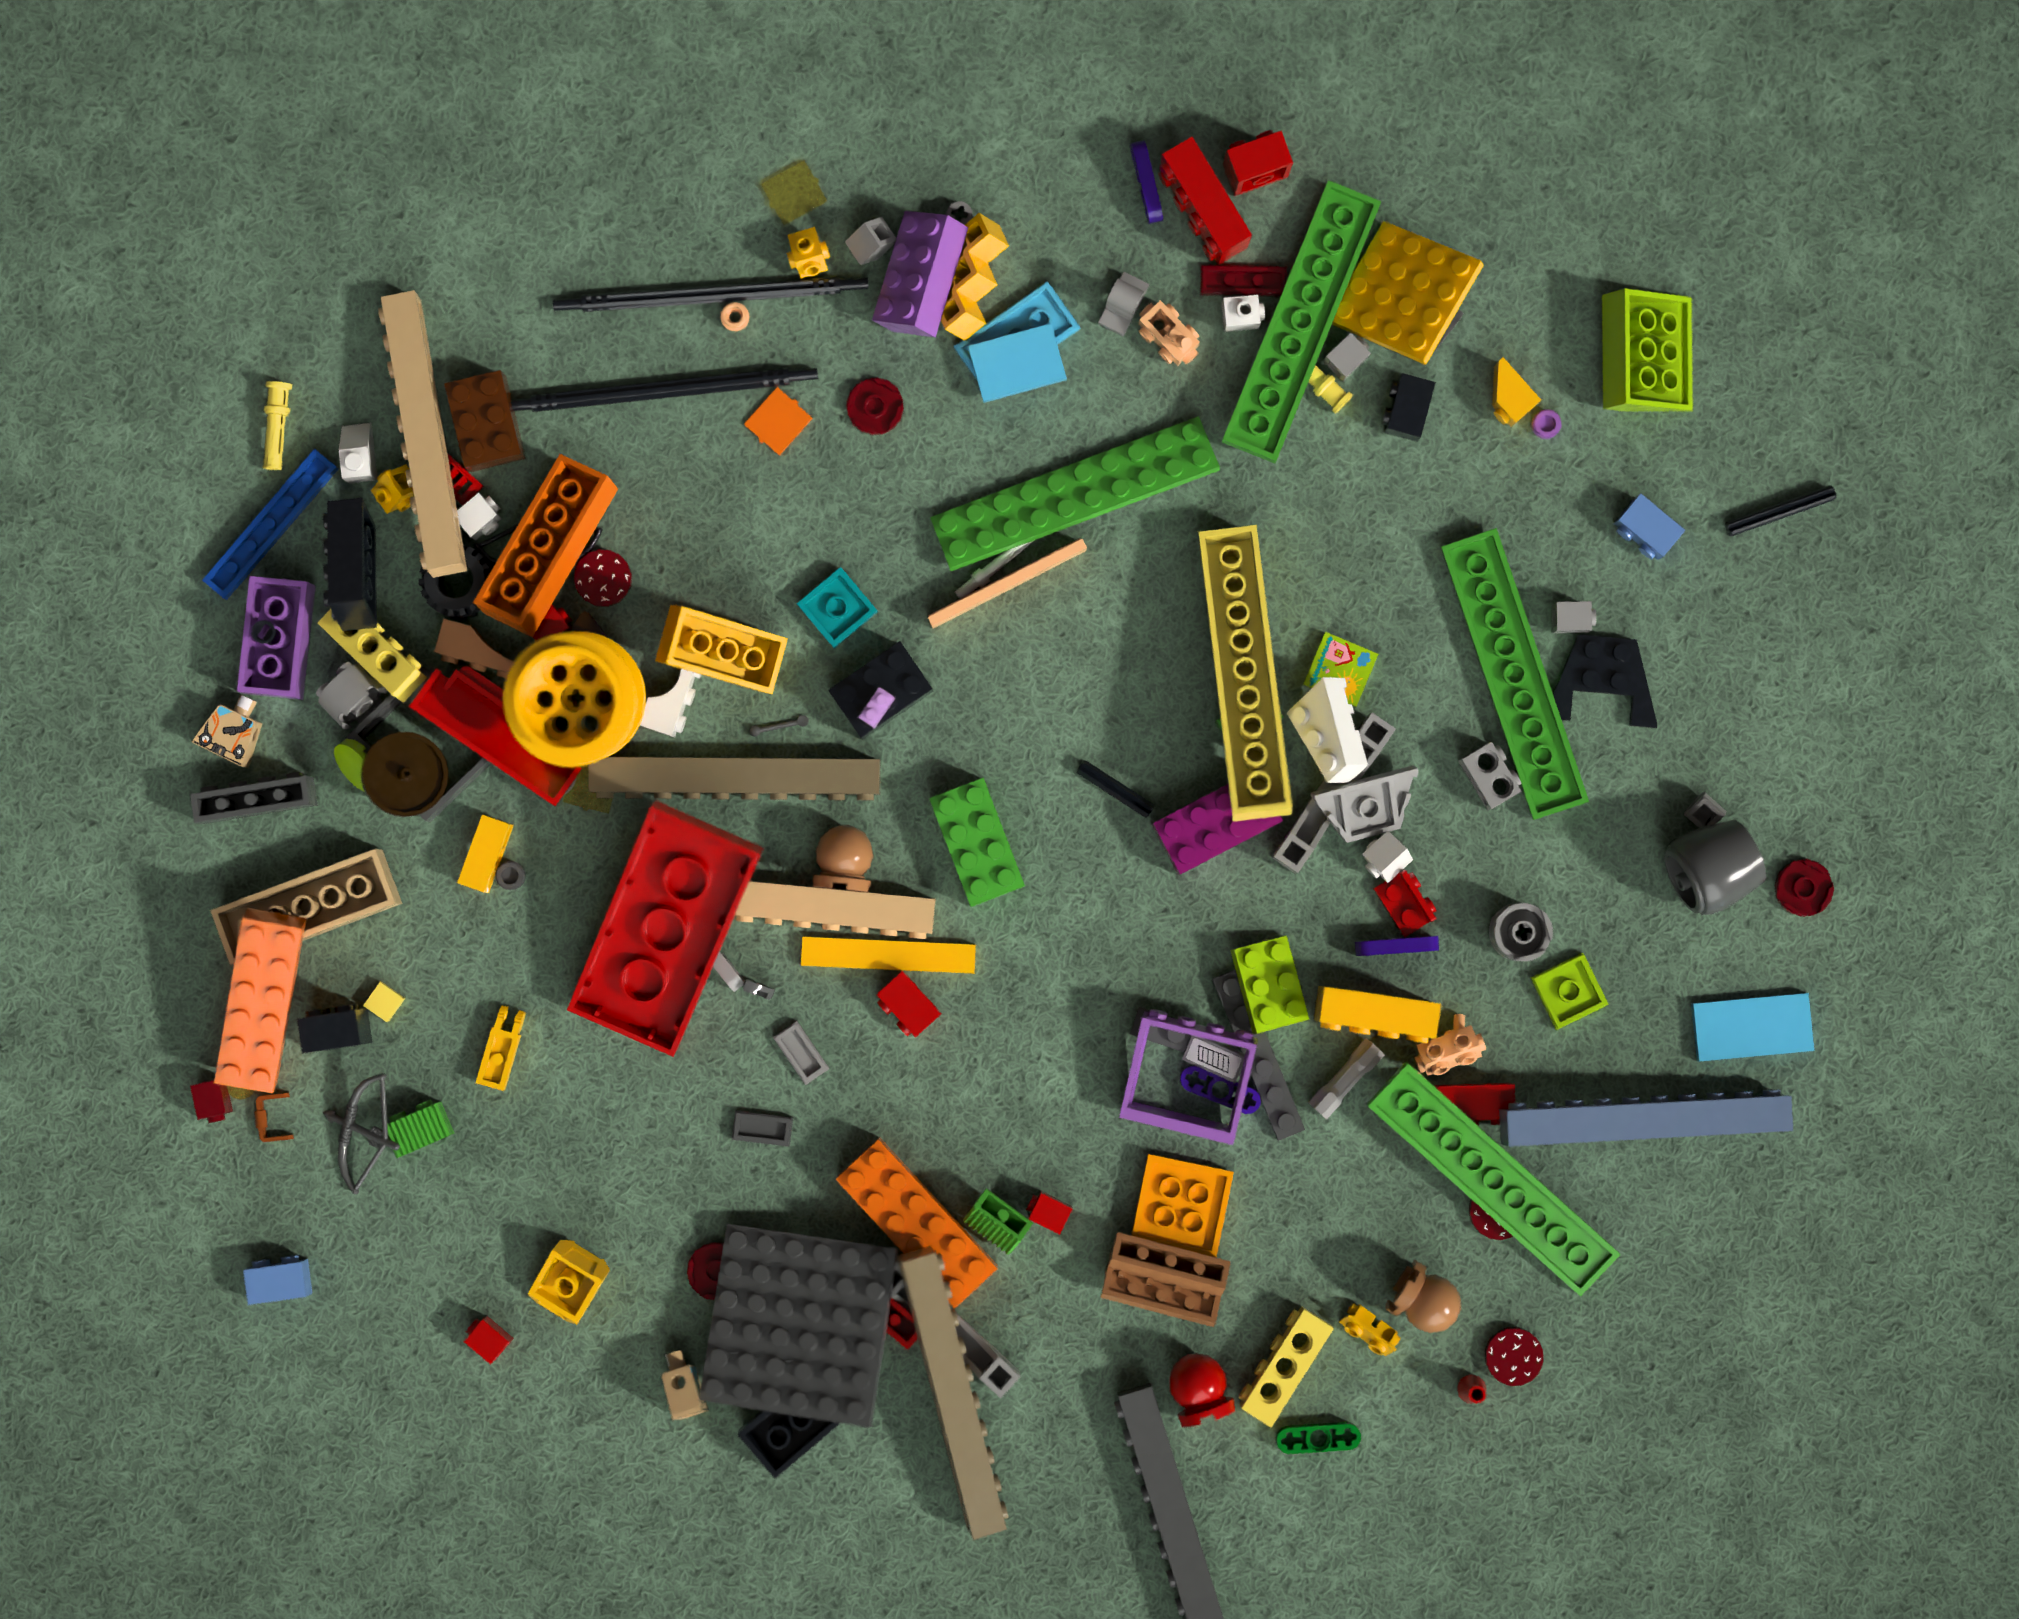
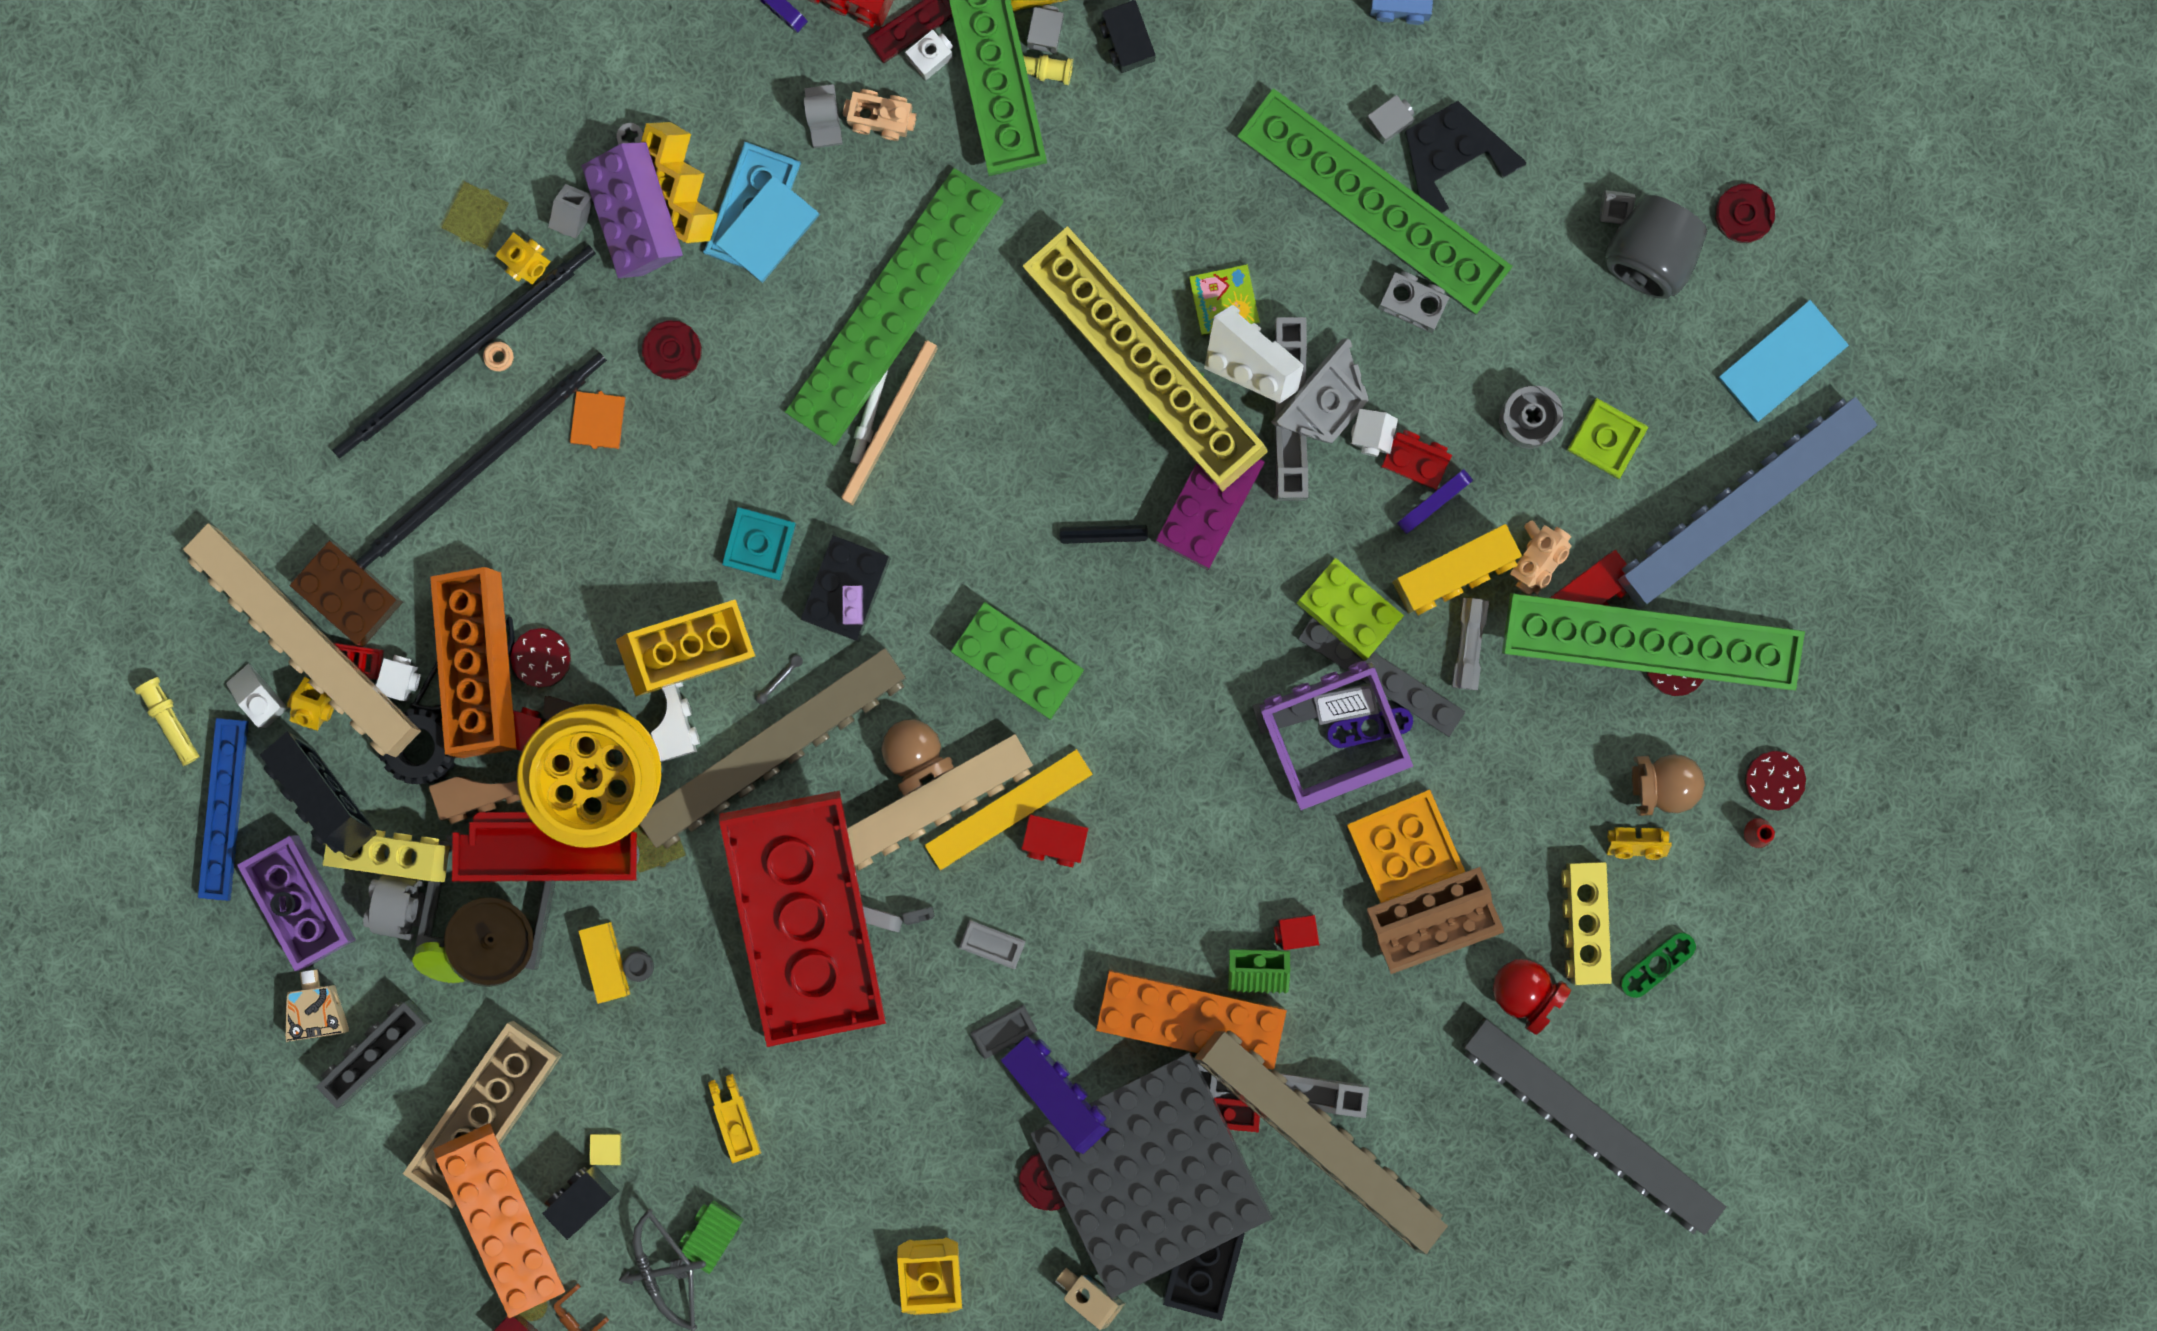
camera: 30 degrees left, 0 degrees up
(768, 1208) = (1055, 1094): none -> dark purple brick

